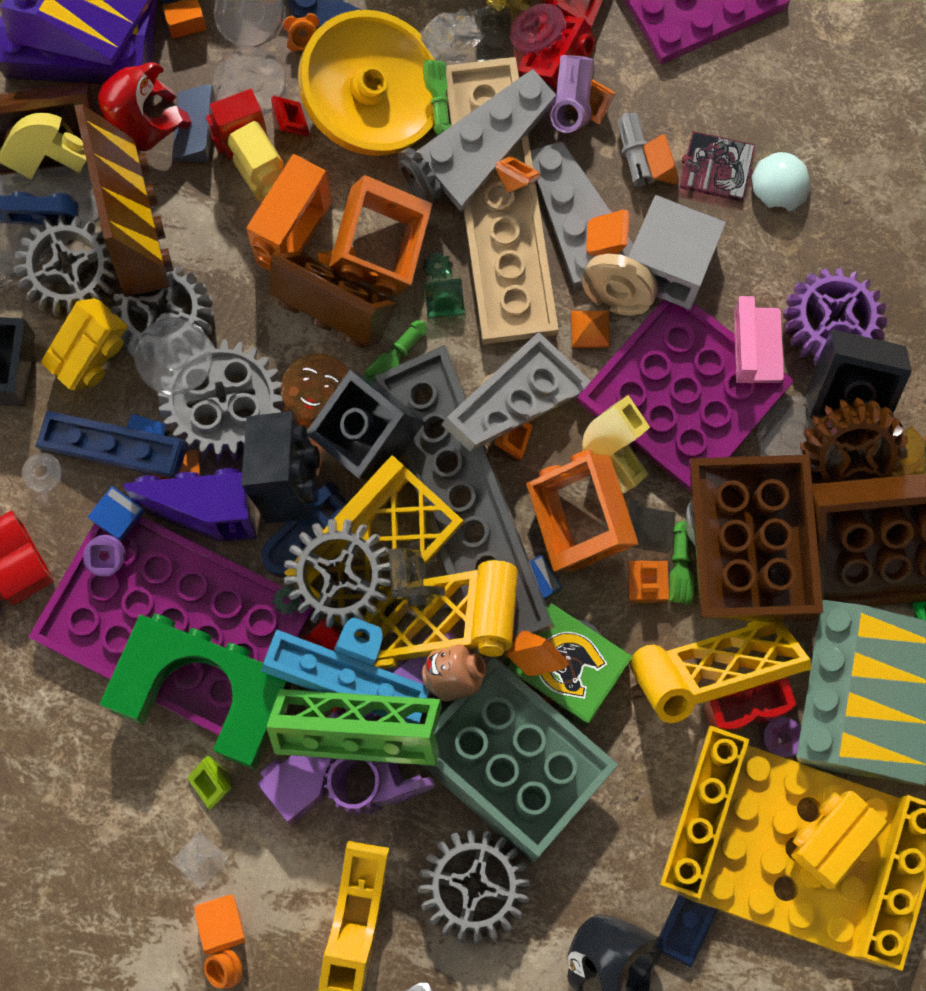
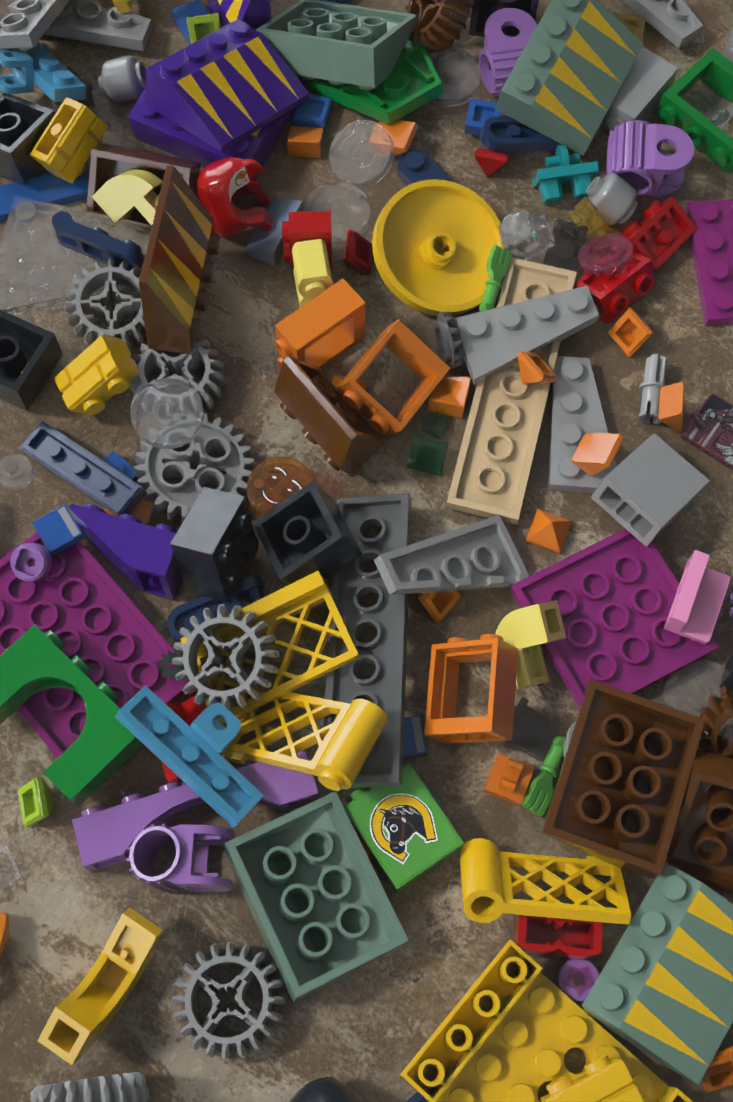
camera: 20 degrees right, 5 degrees down
(295, 25) = (393, 180): orange plate -> none
(350, 734) = (167, 808): bright green fence -> none
(399, 349) = (371, 483): bright green piece -> none
(407, 578) = (285, 686): clear smoke bracket -> none
(443, 231) = (450, 396): none -> orange slope
(453, 672) = (289, 790): nougat head -> none
(535, 654) = (371, 804): orange slope -> none
(573, 89) = (617, 316): lavender piece -> none
(619, 284) = (590, 499): tan tile -> none

